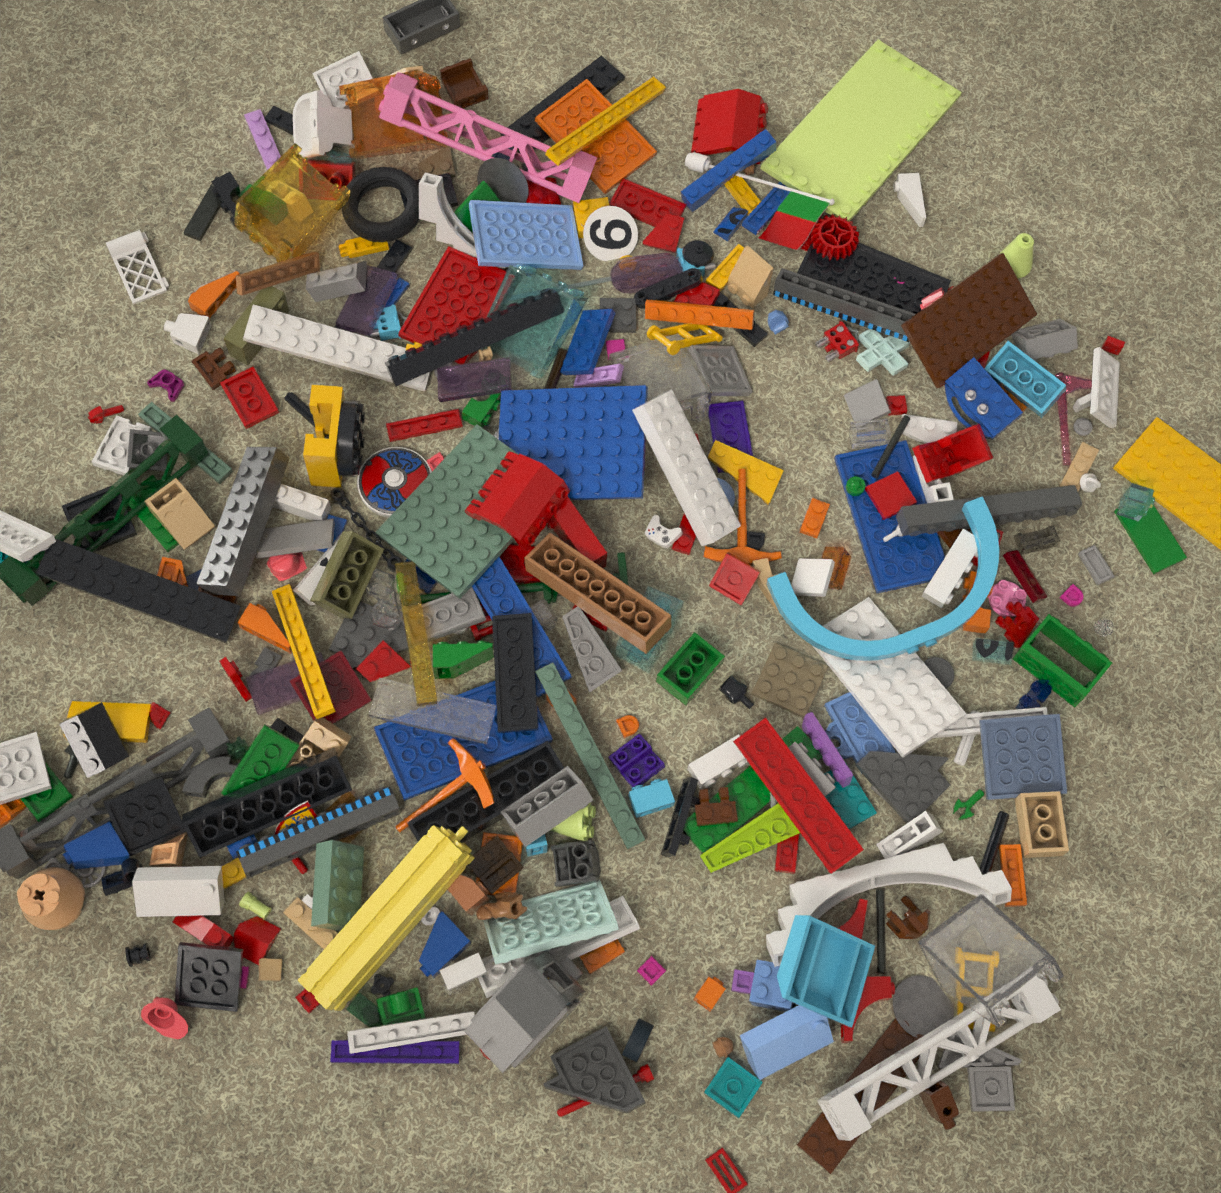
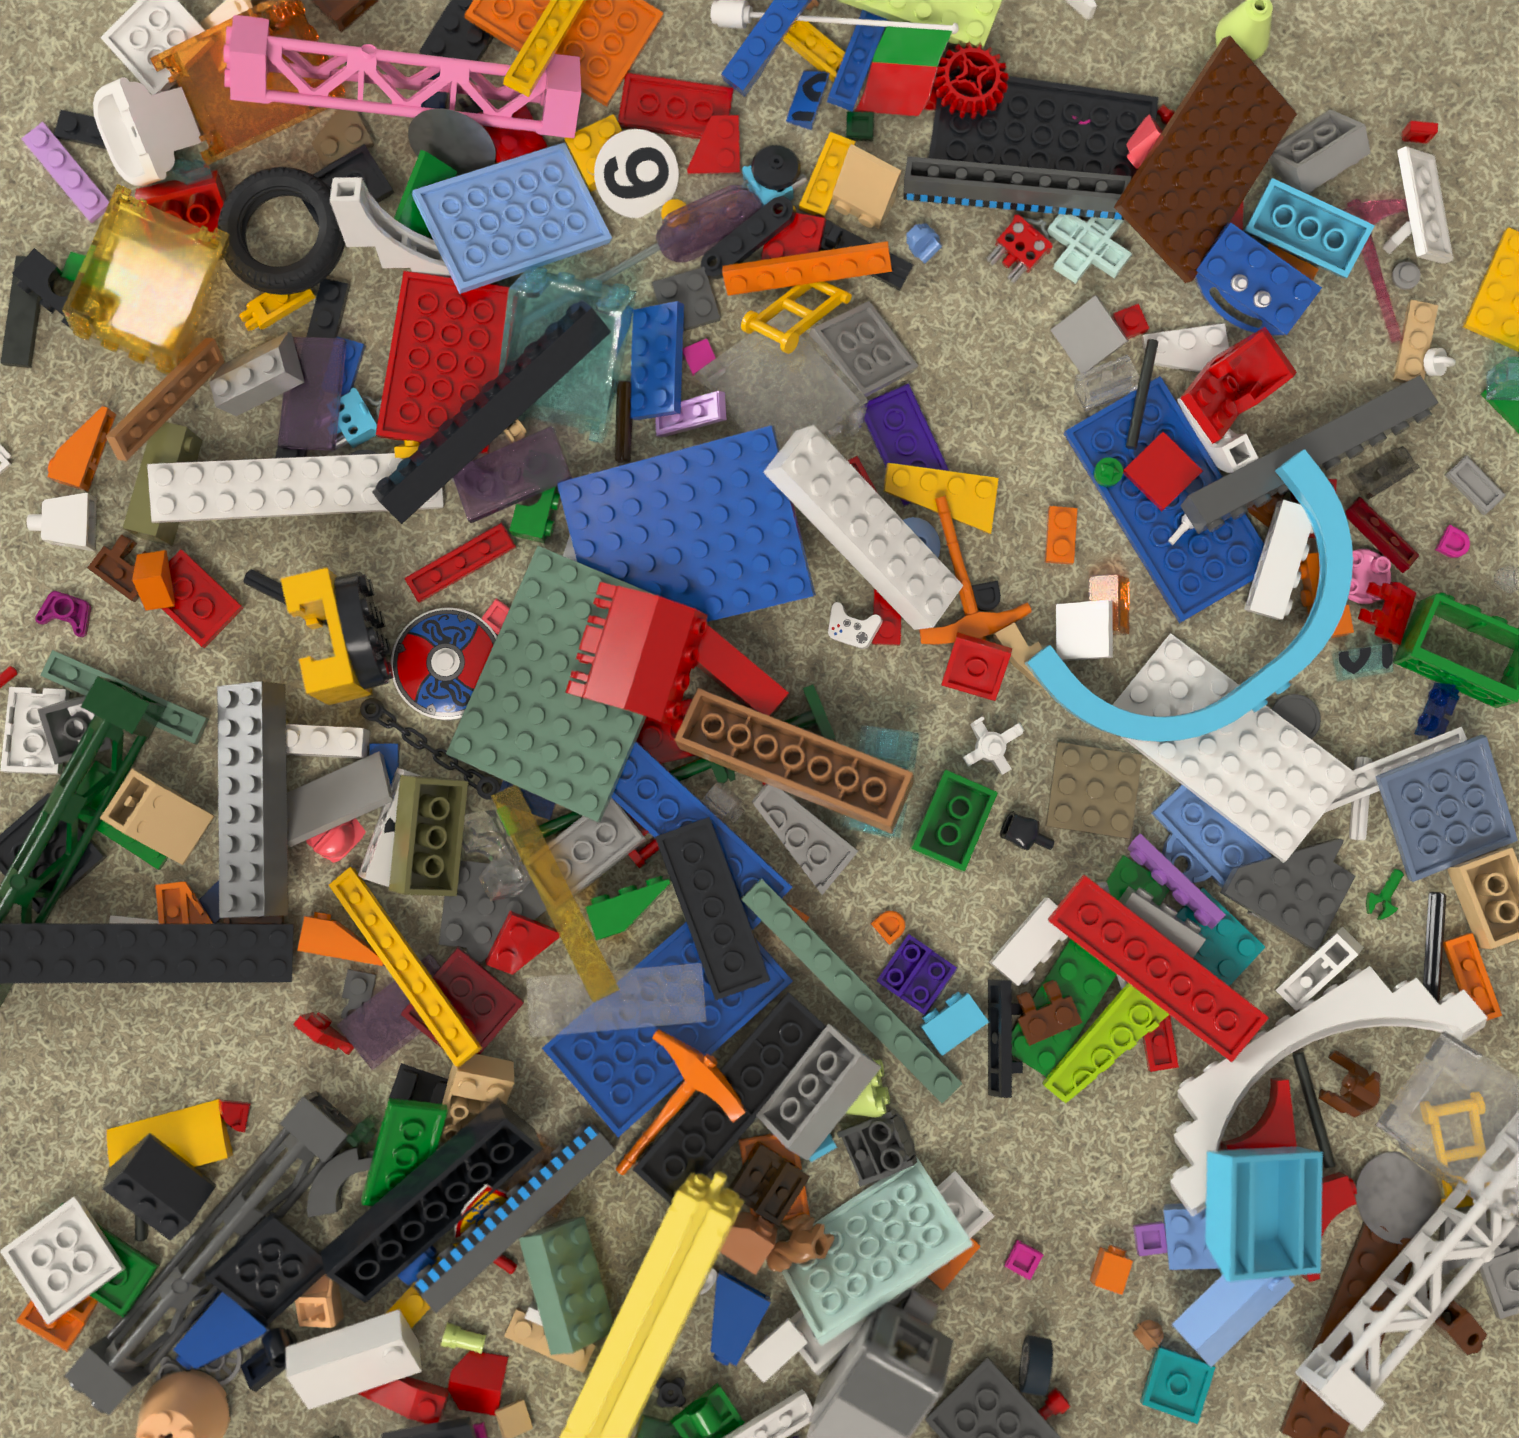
camera: 15 degrees left, 15 degrees up
(229, 378) = (153, 580): none -> orange slope
(729, 629) = (992, 745): none -> white piece
(759, 246) = (860, 126): none -> dark green tile

